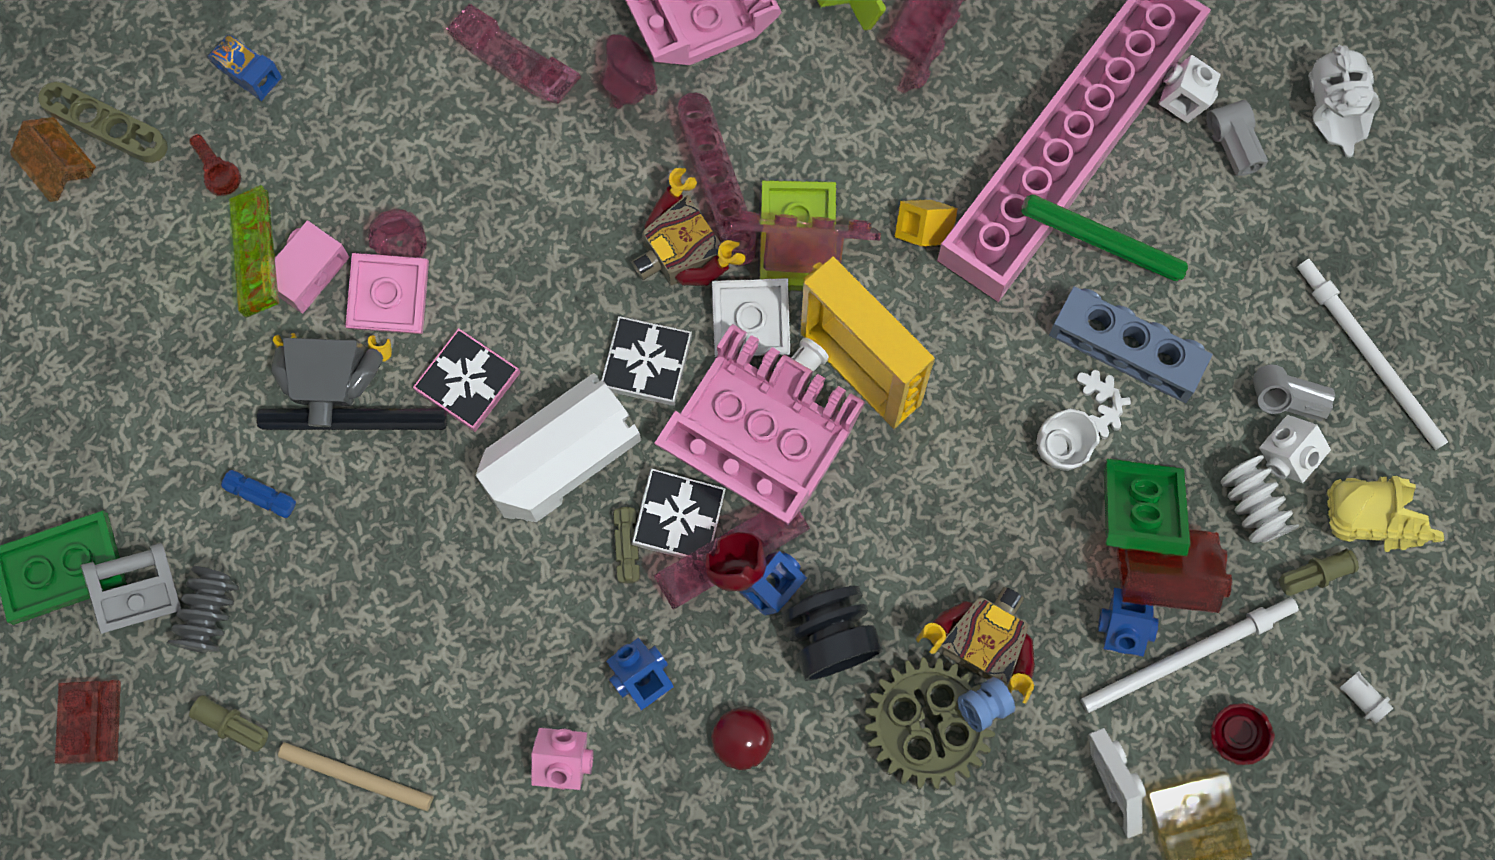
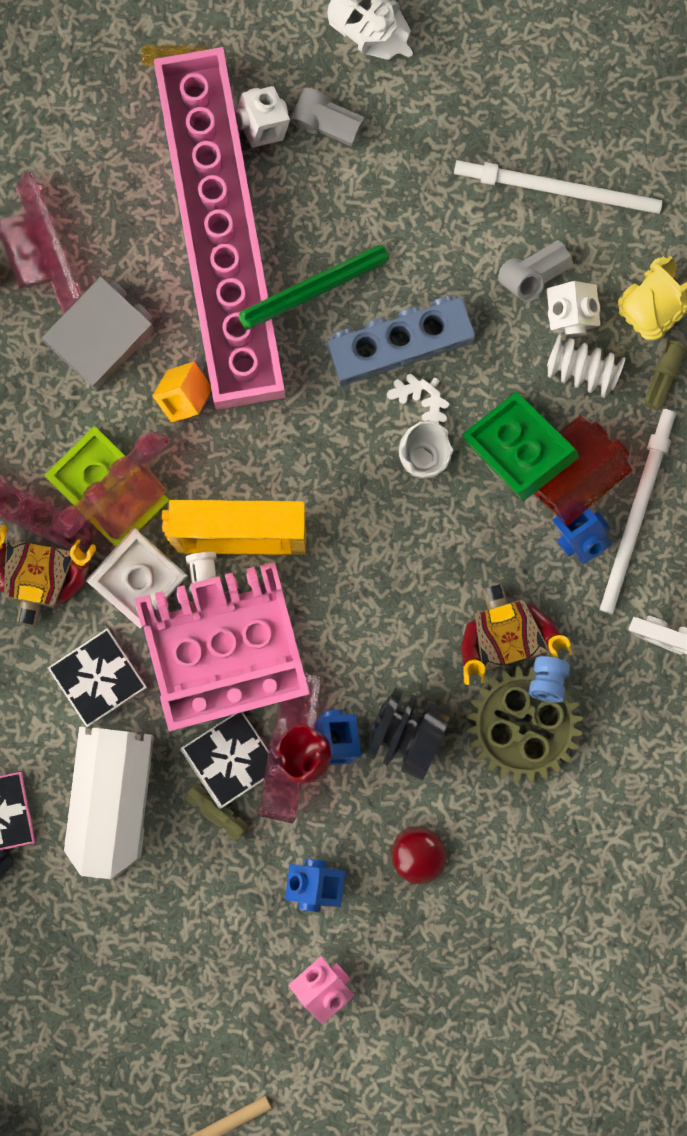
camera: 50 degrees left, 10 degrees up
(909, 124) = (99, 332): none -> light grey brick

